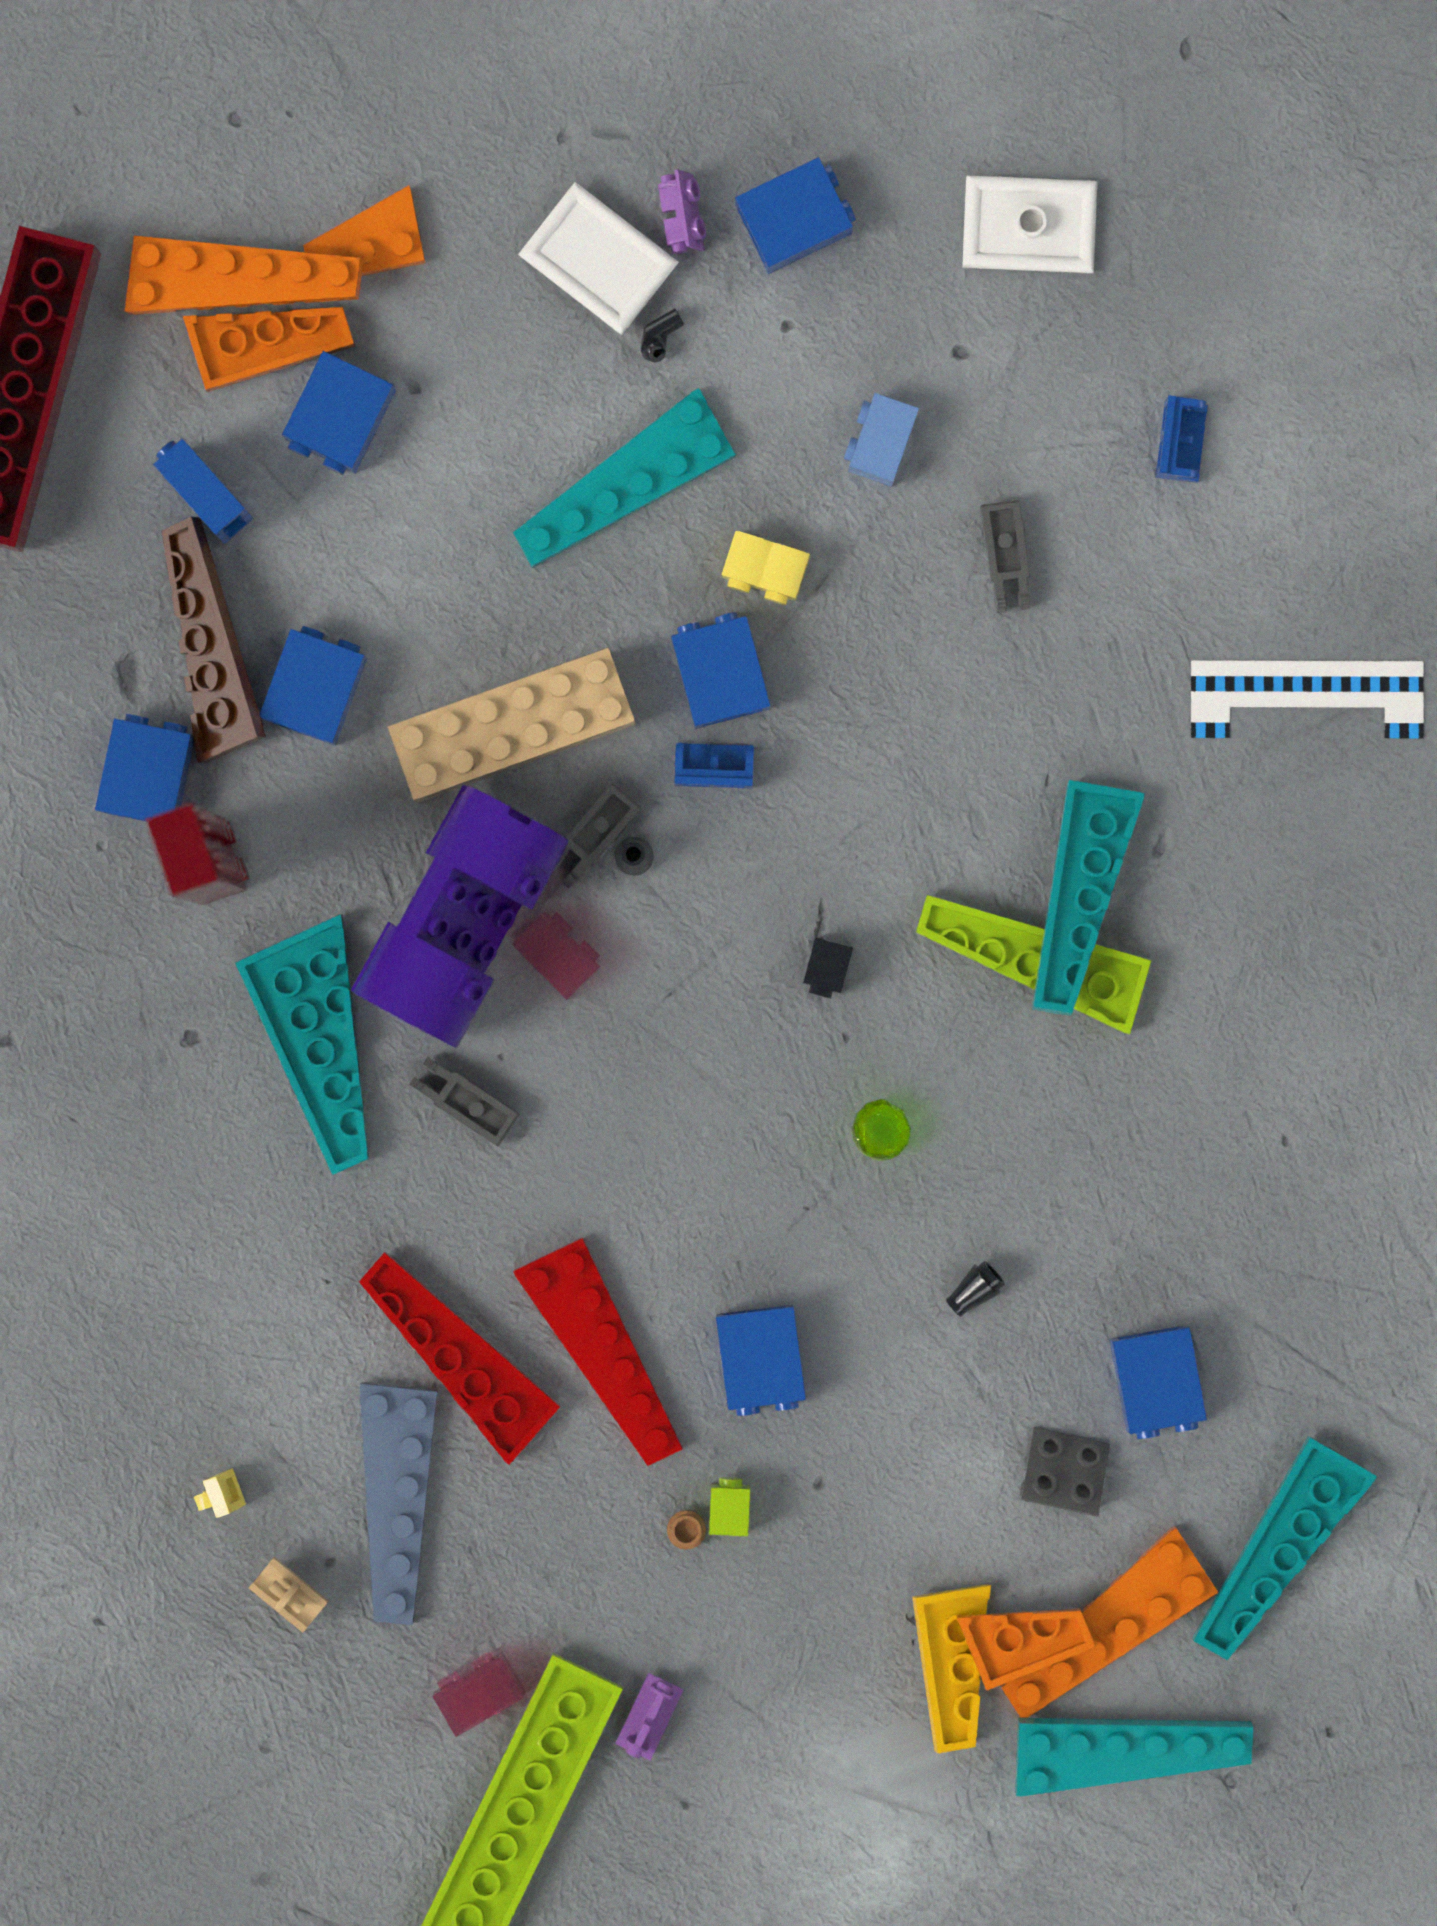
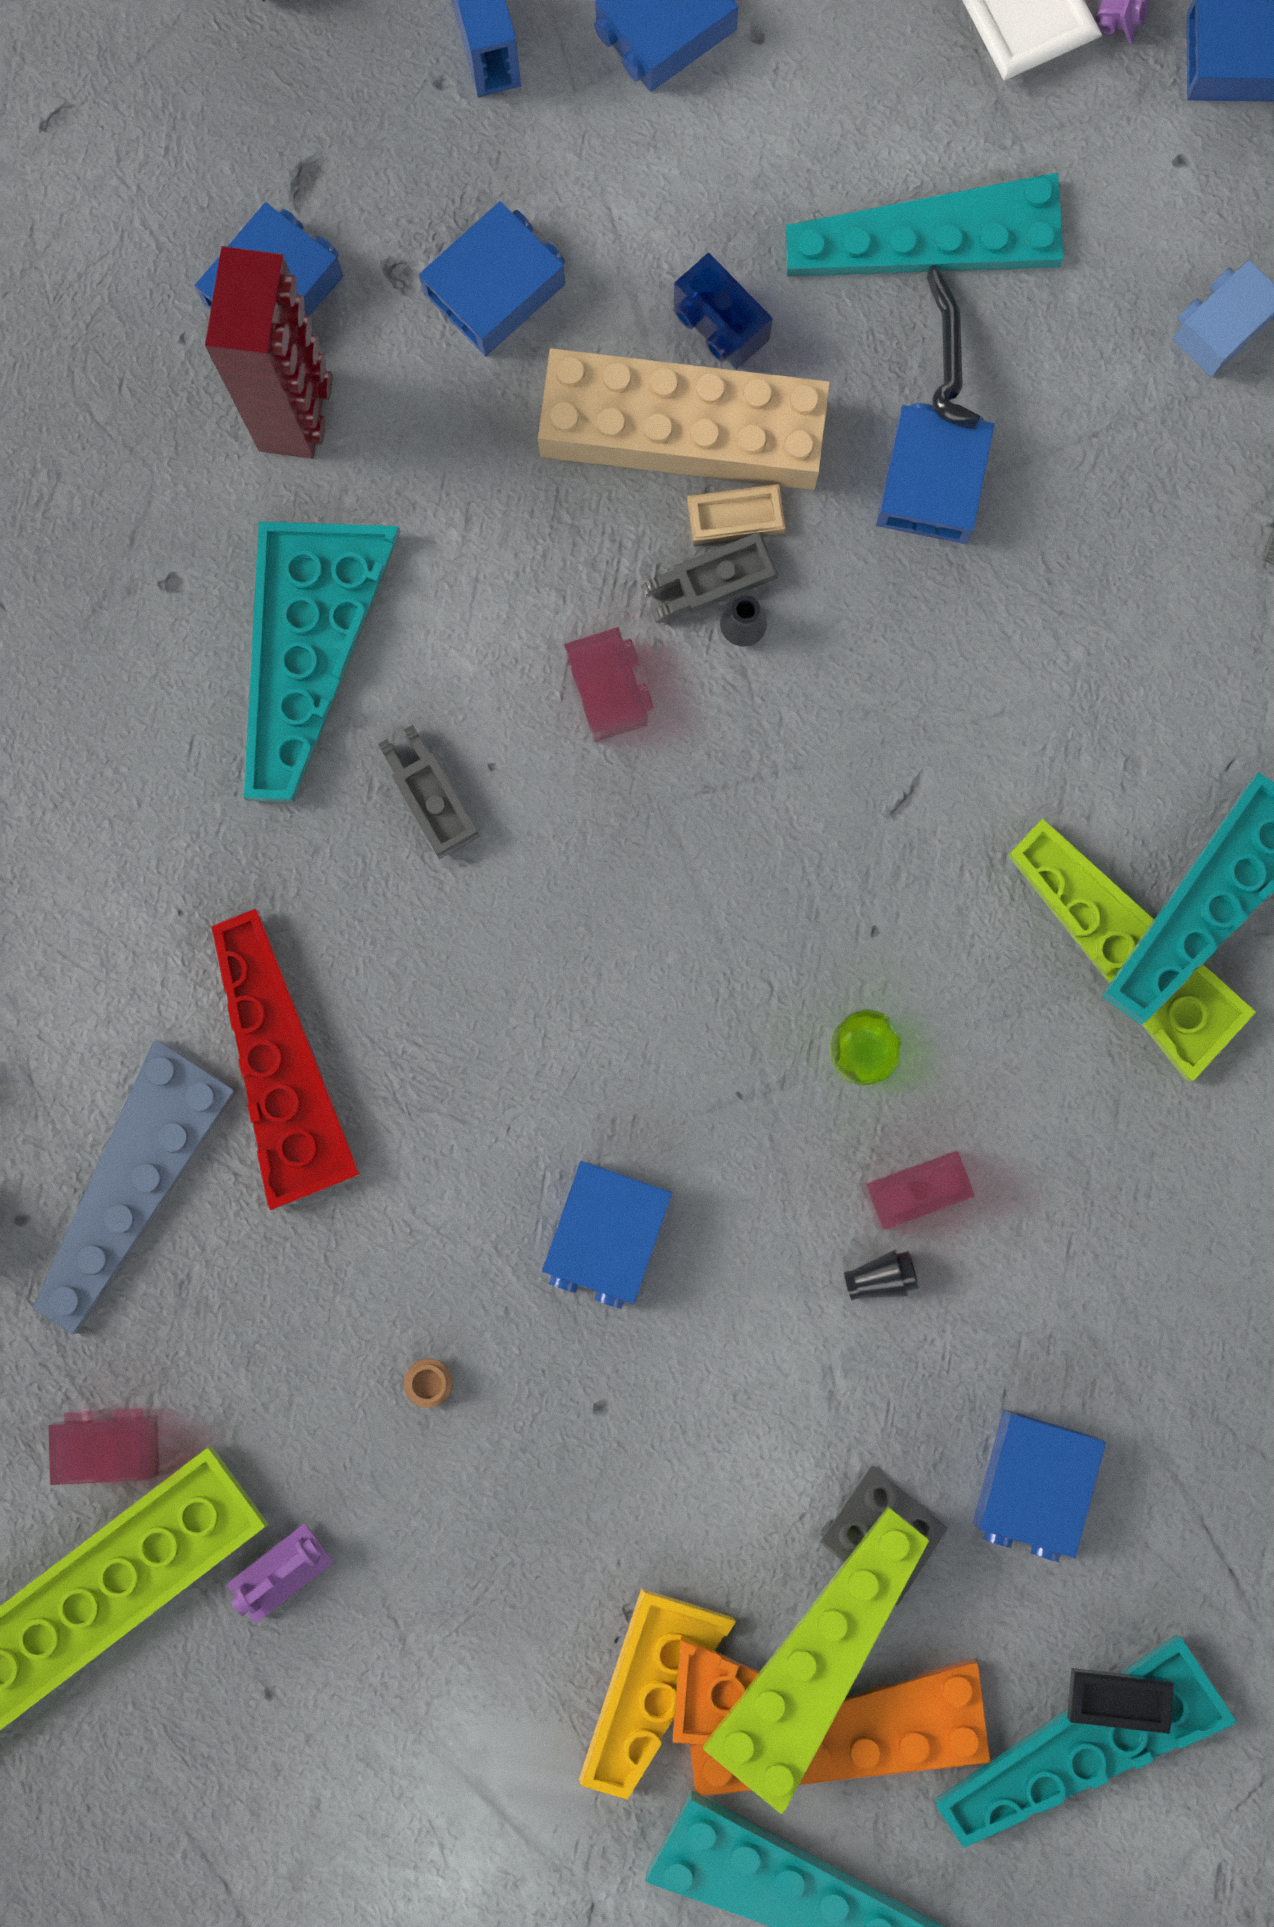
camera: 25 degrees right, 5 degrees down
(217, 677) = (397, 221): reddish brown wing -> none
(480, 876) = (526, 581): dark purple cylinder -> none
(499, 629) = (721, 312): none -> clear blue brick
(586, 775) = (735, 514): none -> tan tile
(586, 1321) = (436, 1097): red wing -> none
(655, 335) = (1040, 98): black arm -> none
(688, 575) = (952, 356): none -> black piece
(714, 765) = (876, 572): blue hinge -> none
(729, 1507) = (488, 1382): lime brick -> none
(765, 567) = (1038, 388): light yellow brick -> none
(827, 967) = (894, 842): black brick -> none
(969, 1214) = (917, 1190): none -> clear pink brick
(1056, 1613) = (798, 1692): none -> lime wing
(1287, 1502) = (1120, 1700): none -> black tile

